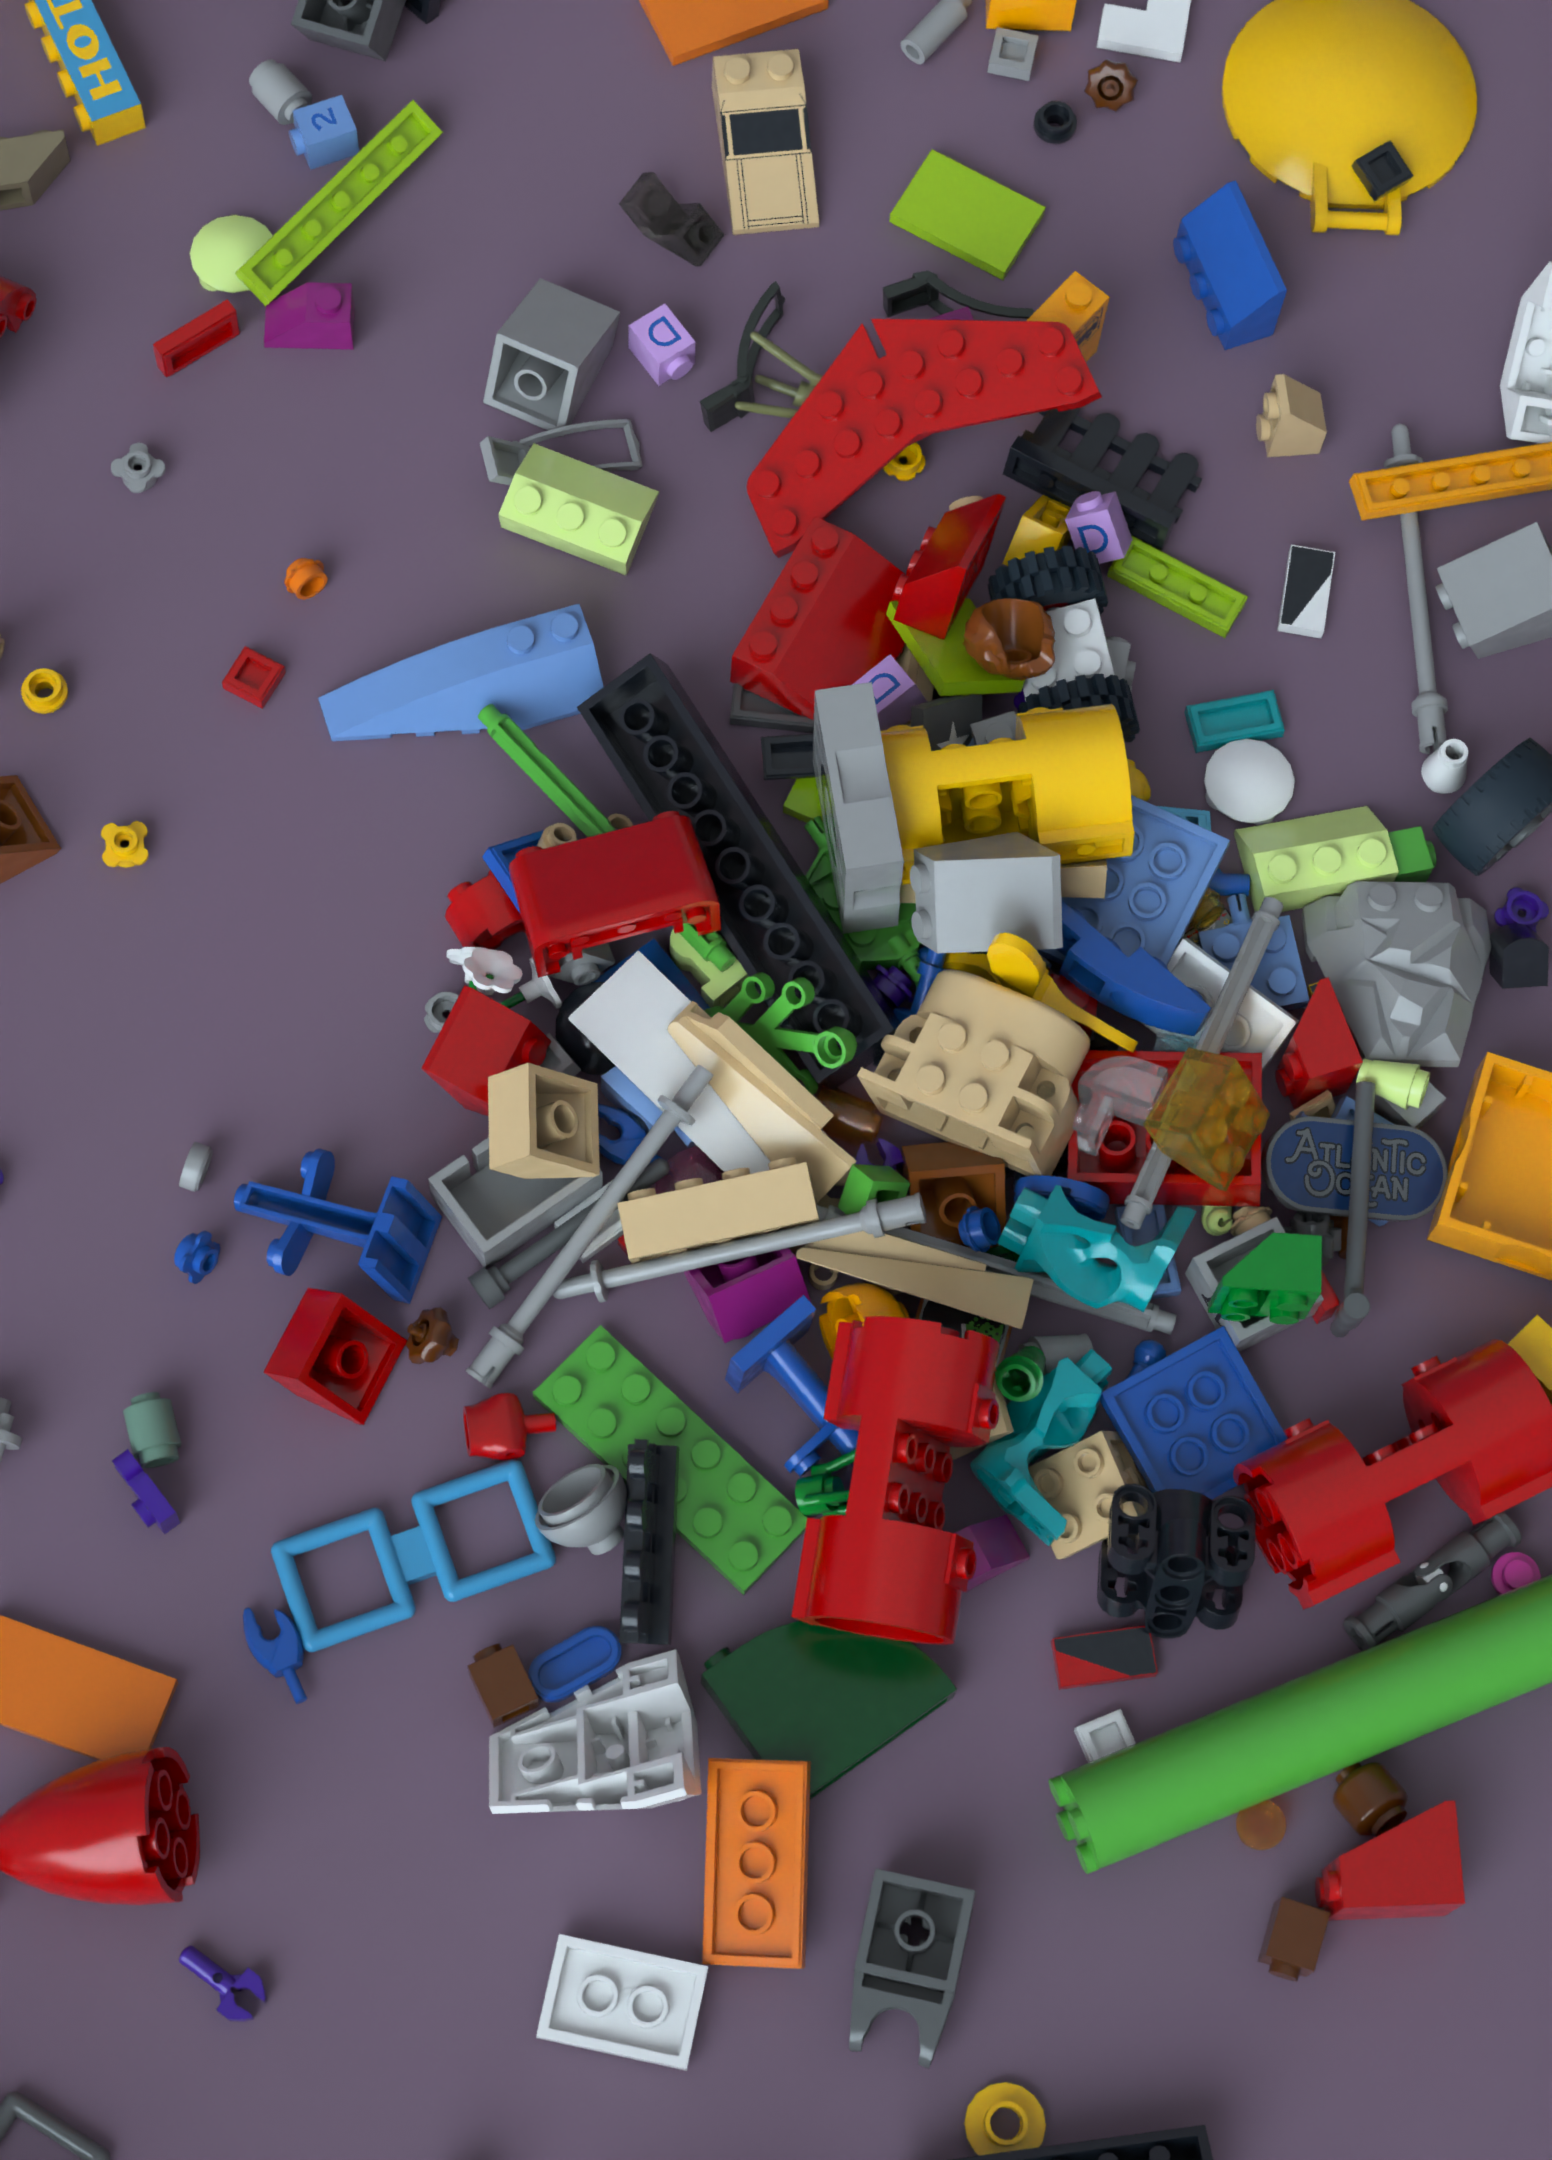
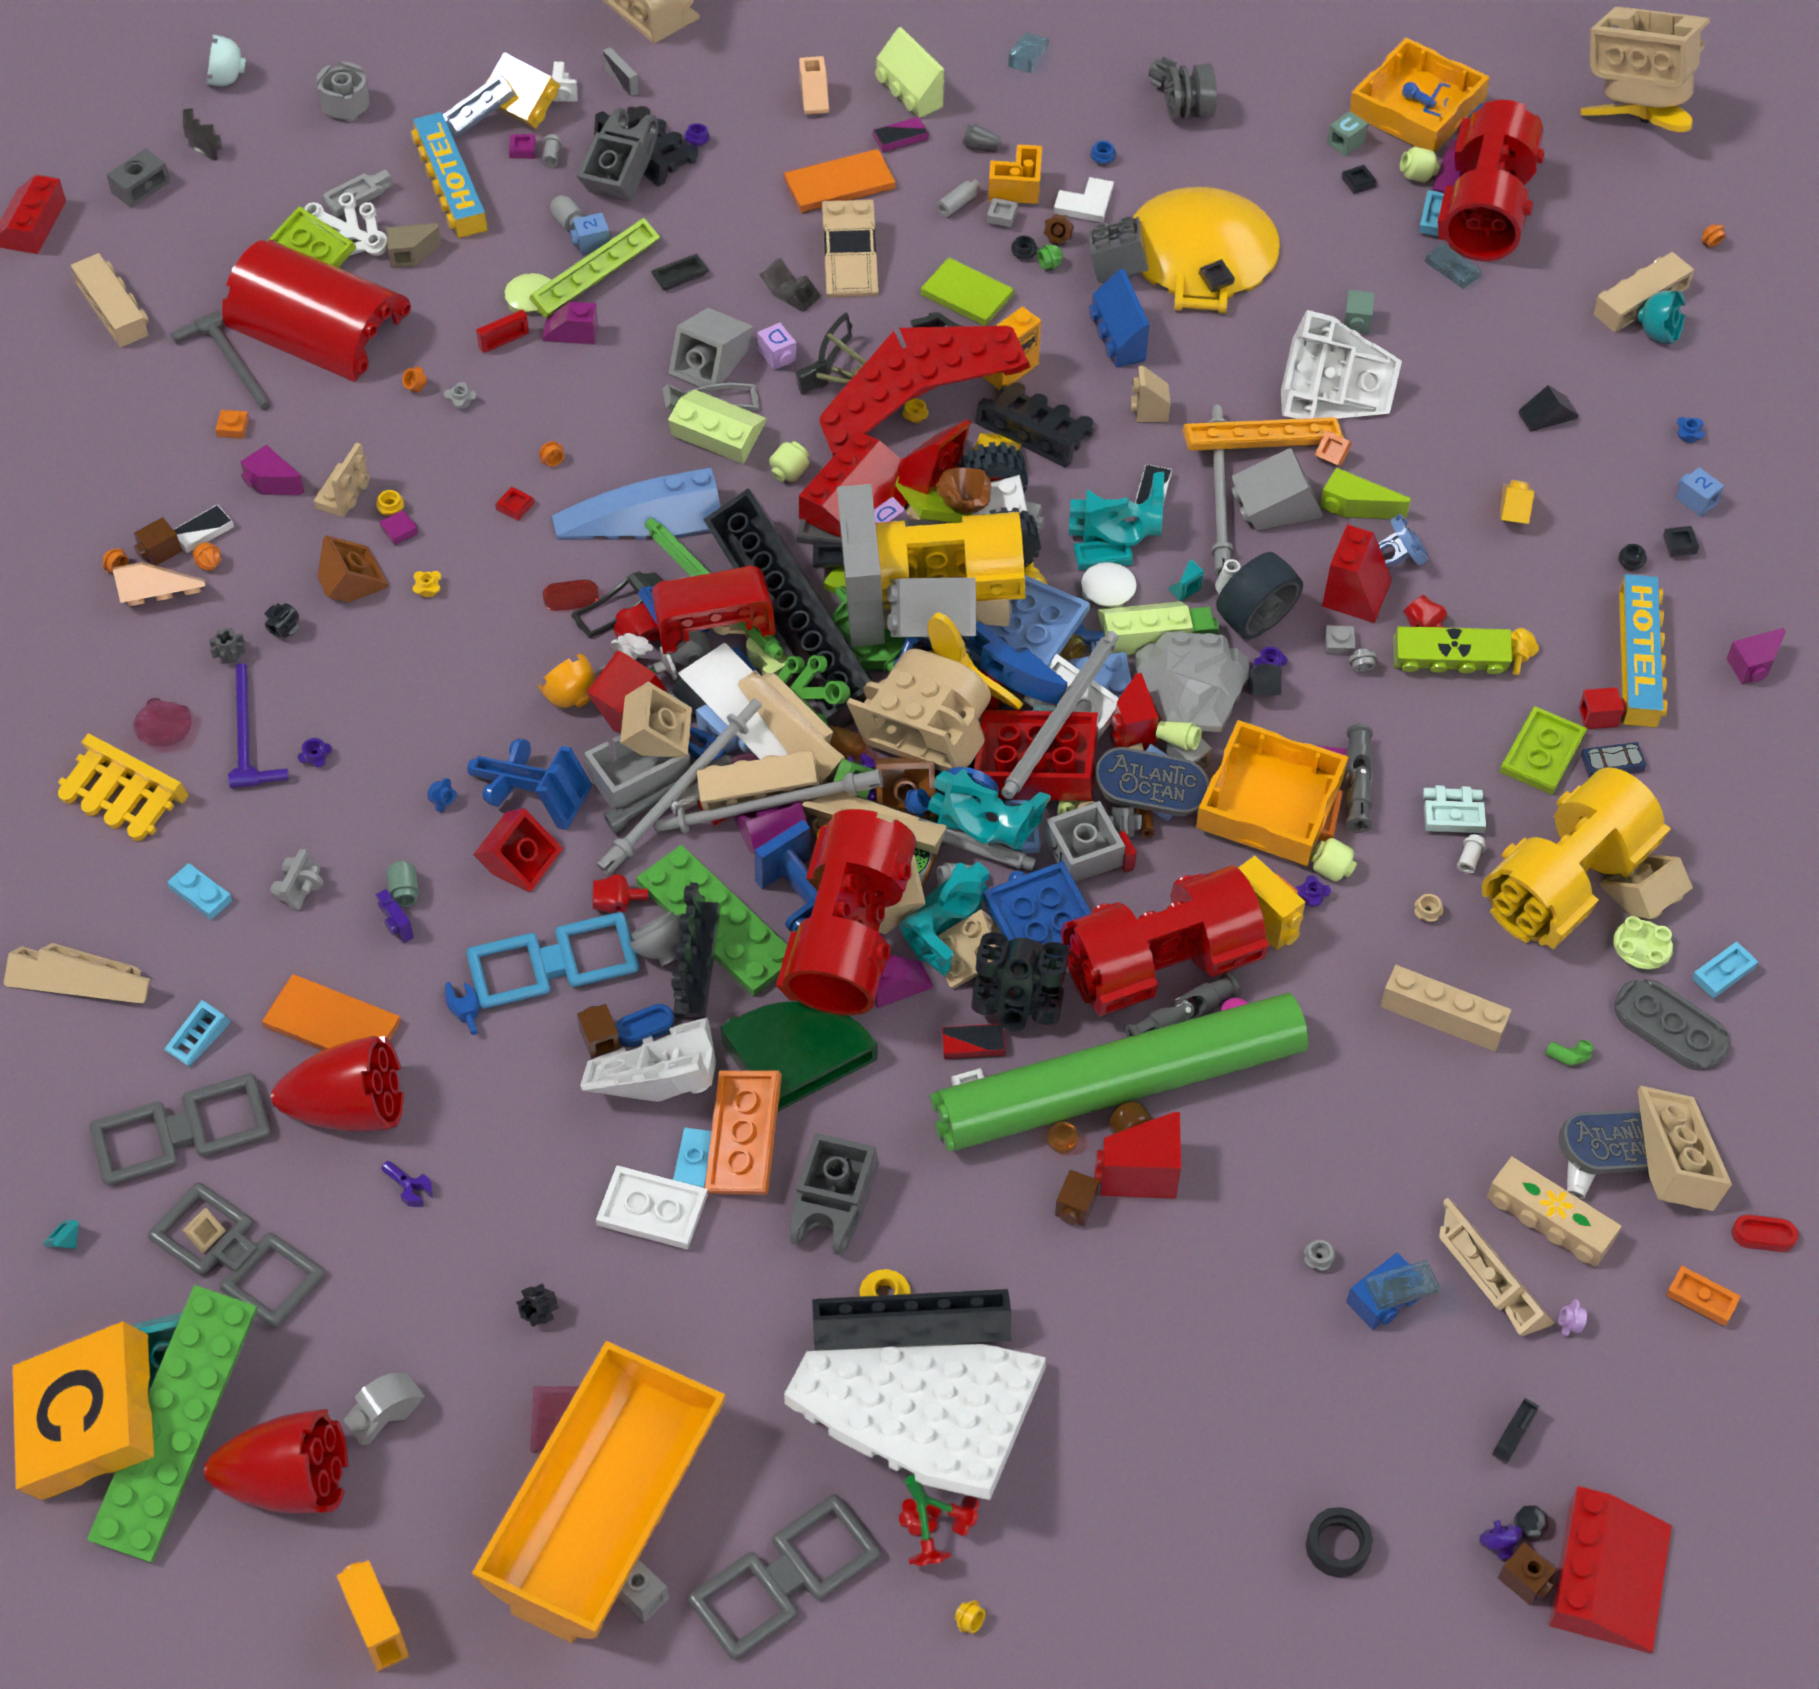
camera: 10 degrees right, 15 degrees down
(57, 442) = (414, 379): none -> orange plate
(64, 736) = (398, 527): none -> magenta tile
(196, 1167) = (446, 748): light grey tile -> none
(366, 852) = (570, 594): none -> clear red tile
(388, 1035) = (569, 683): none -> light orange cylinder
(431, 1337) = (577, 844): reddish brown piece -> none
(482, 198) = (680, 272): none -> pearl dark grey tile
(484, 827) = (636, 580): none -> pearl dark grey piece
(679, 1907) = (693, 1157): none -> medium azure plate
(704, 575) = (789, 461): none -> yellowish green head
(893, 985) = (878, 673): dark purple plate -> none
(1021, 1374) = (932, 872): green cone -> none
(1099, 526) = (1030, 443): lavender brick -> none
(1100, 140) = (1049, 256): none -> bright green plate
(1117, 1088) = (1006, 724): clear brick -> none
(1178, 587) = (1070, 480): lime tile -> none
(1208, 1116) = (1058, 735): clear yellow slope -> none
(1213, 122) = (1118, 248): none -> dark grey slope
(1262, 666) = (1104, 518): none -> teal hips
(1272, 1281) = (1087, 823): green slope -> none
(1355, 1304) = (1142, 844): dark grey bar -> none
(1377, 771) = (1190, 582): none -> teal slope

